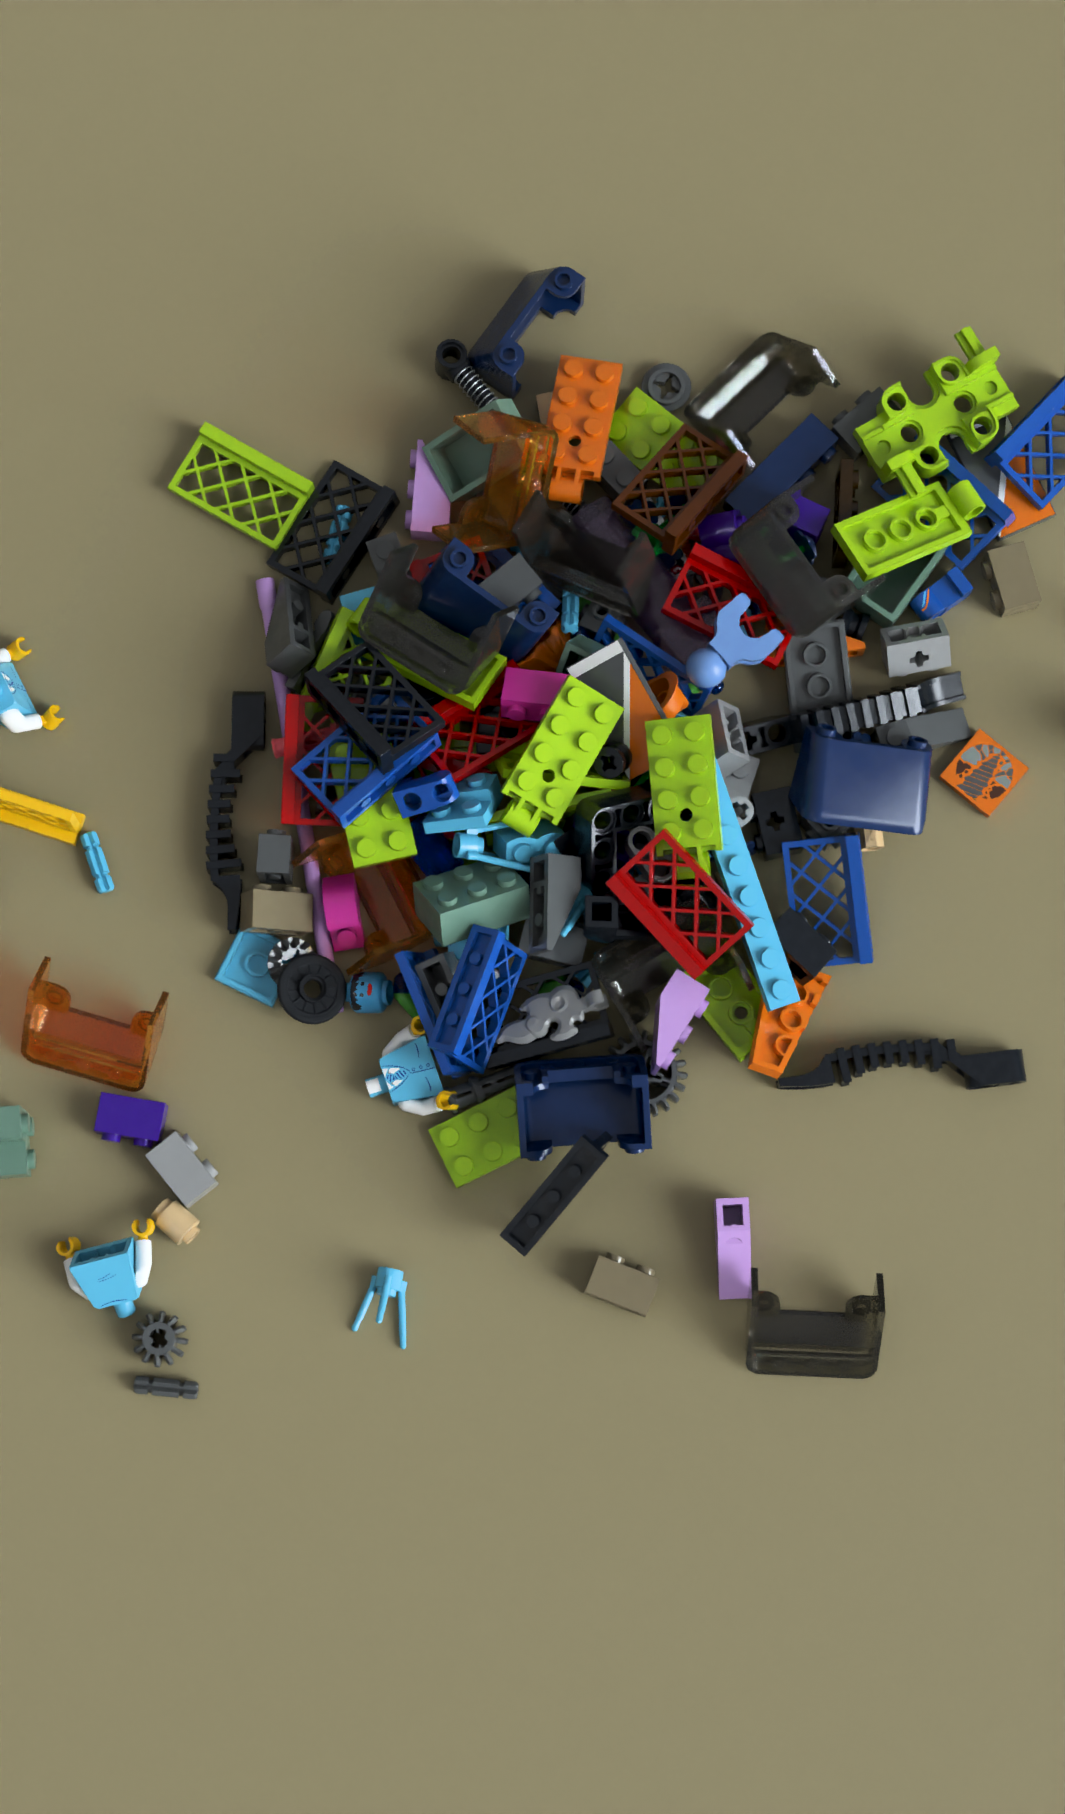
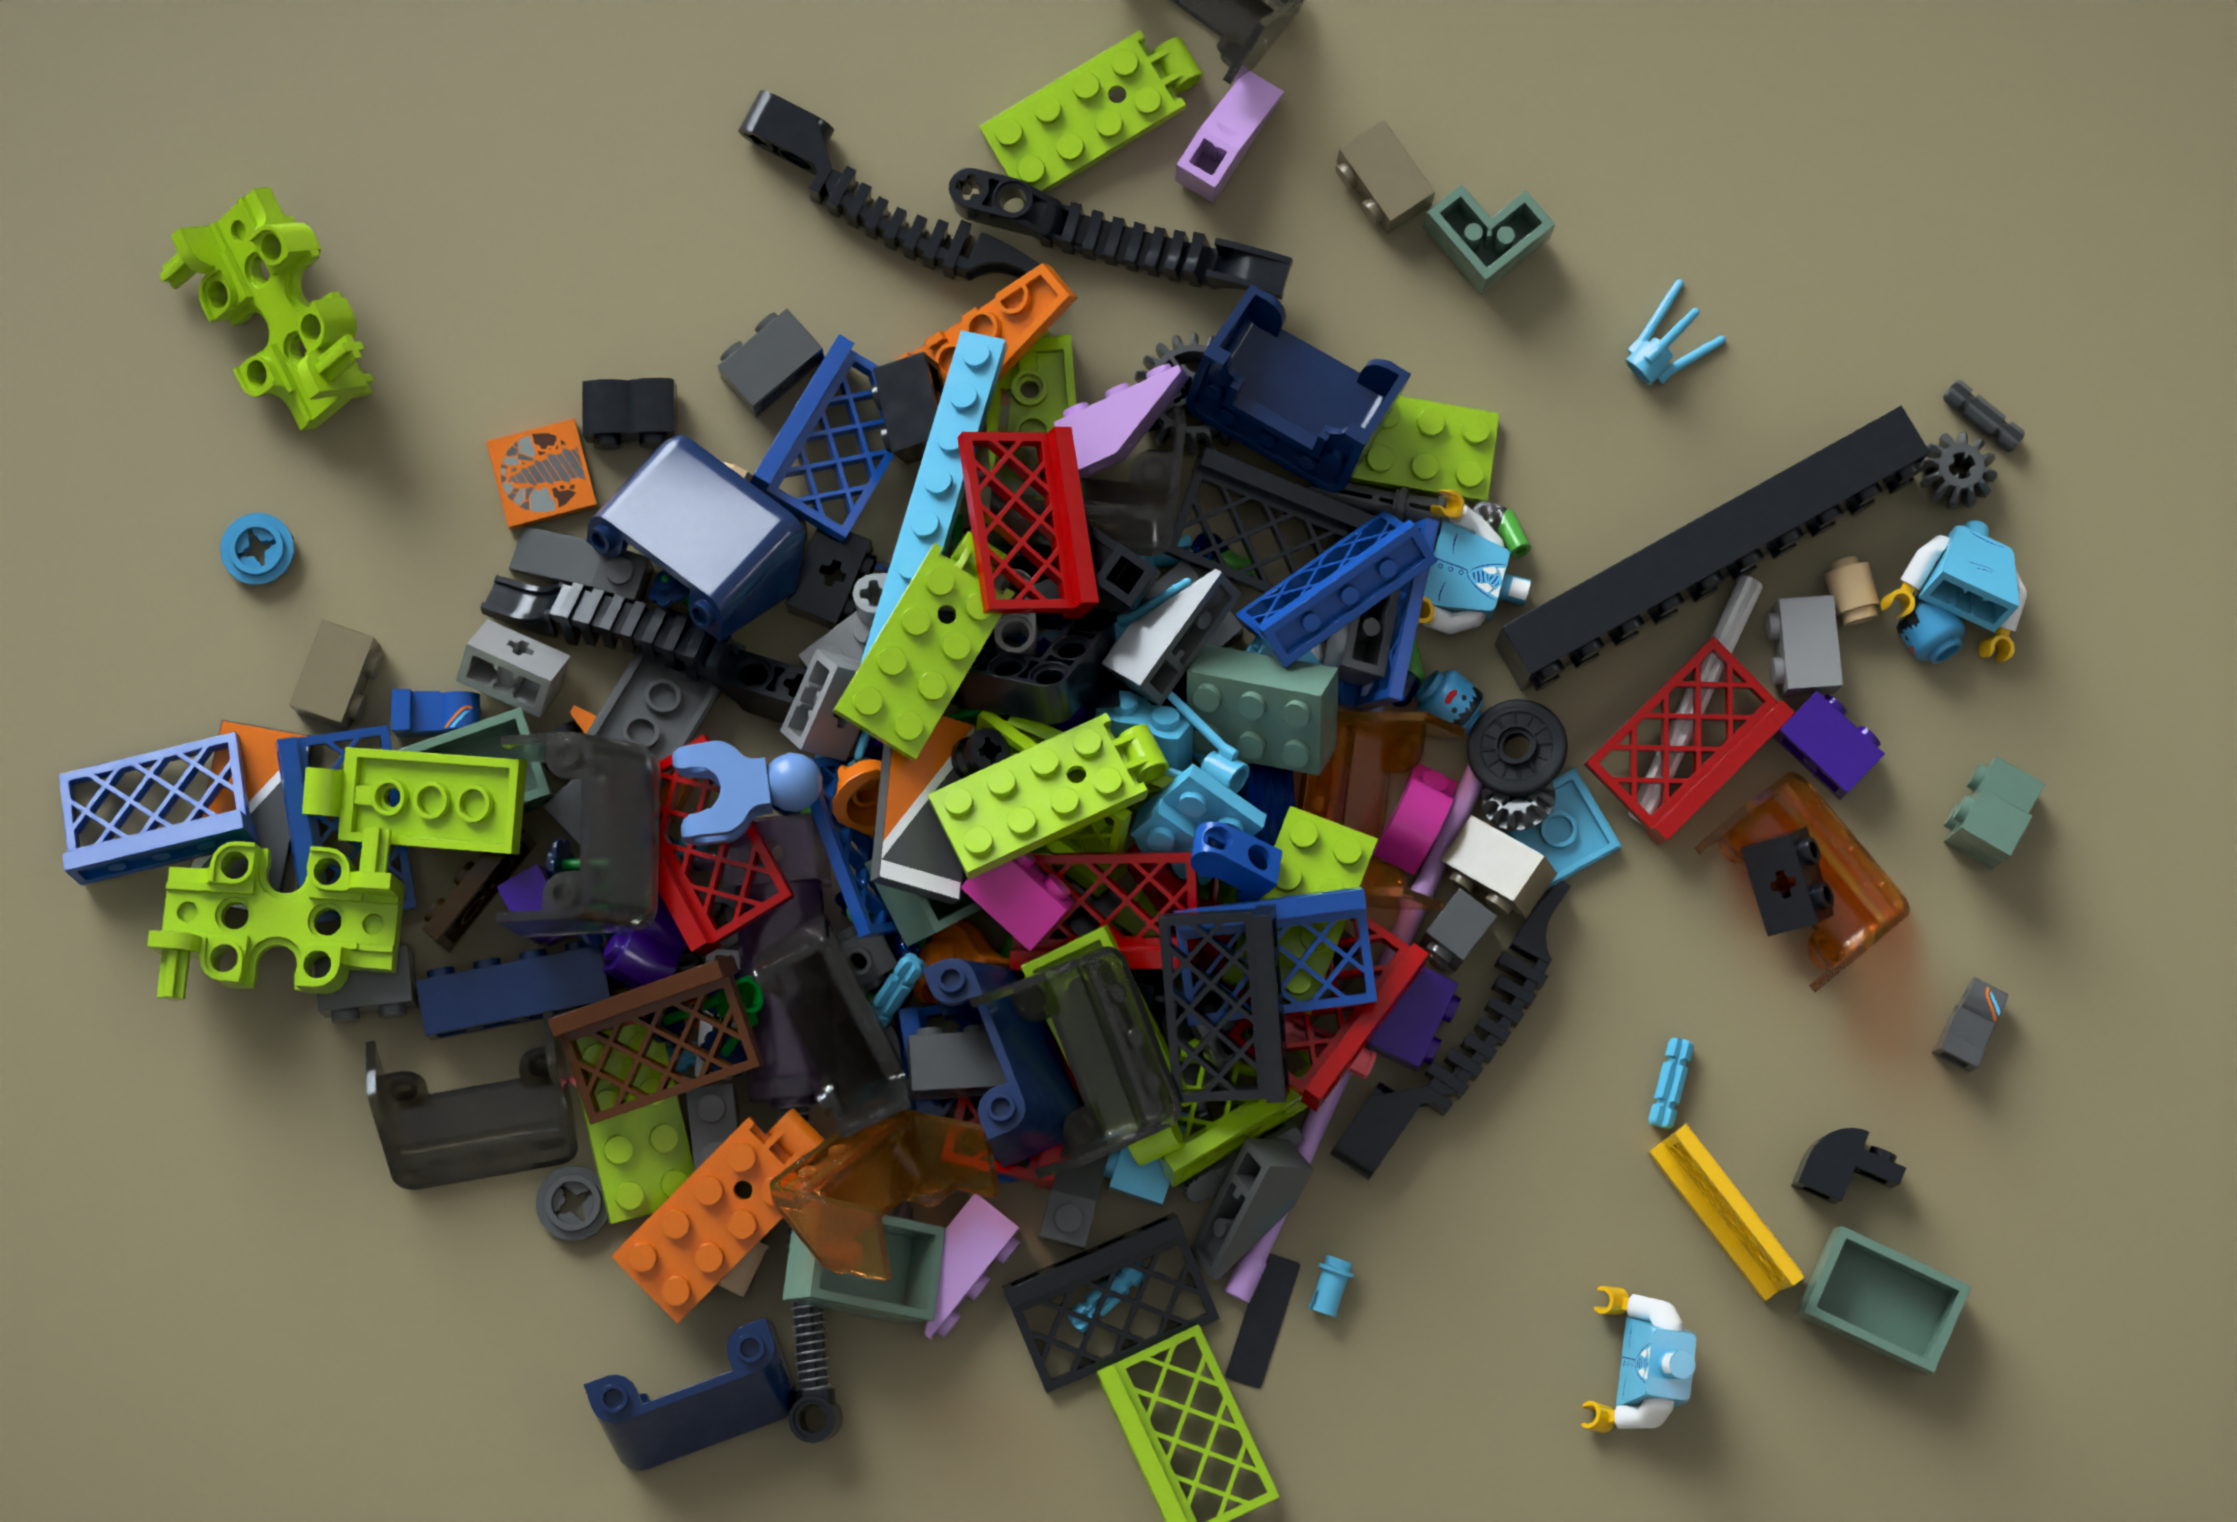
camera: 145 degrees left, 0 degrees up
(103, 1017) = (1781, 903): none -> black brick
(112, 1226) = (1931, 632): none -> dark azure head
(187, 1058) = (1716, 769): none -> red fence
(215, 619) = (1331, 1285): none -> medium azure pin
(227, 1095) = (1681, 731): none -> white axle
(241, 579) = (1262, 1322): none -> black sticker
(265, 791) = (1411, 1026): none -> dark purple brick
(274, 1183) = (1711, 549): none -> black brick
(408, 1123) = (1506, 525): none -> bright green arm
(533, 1279) = (1484, 245): none -> sand green brick
(556, 1193) = (1394, 301): black fence -> none
(558, 1006) = (1243, 526): light grey piece -> none
(753, 1137) = (1048, 220): none -> black piece
(829, 1192) = (1077, 124): none -> lime hinge
(901, 924) = (770, 361): none -> dark grey brick
(960, 840) = (629, 411): none -> black brick

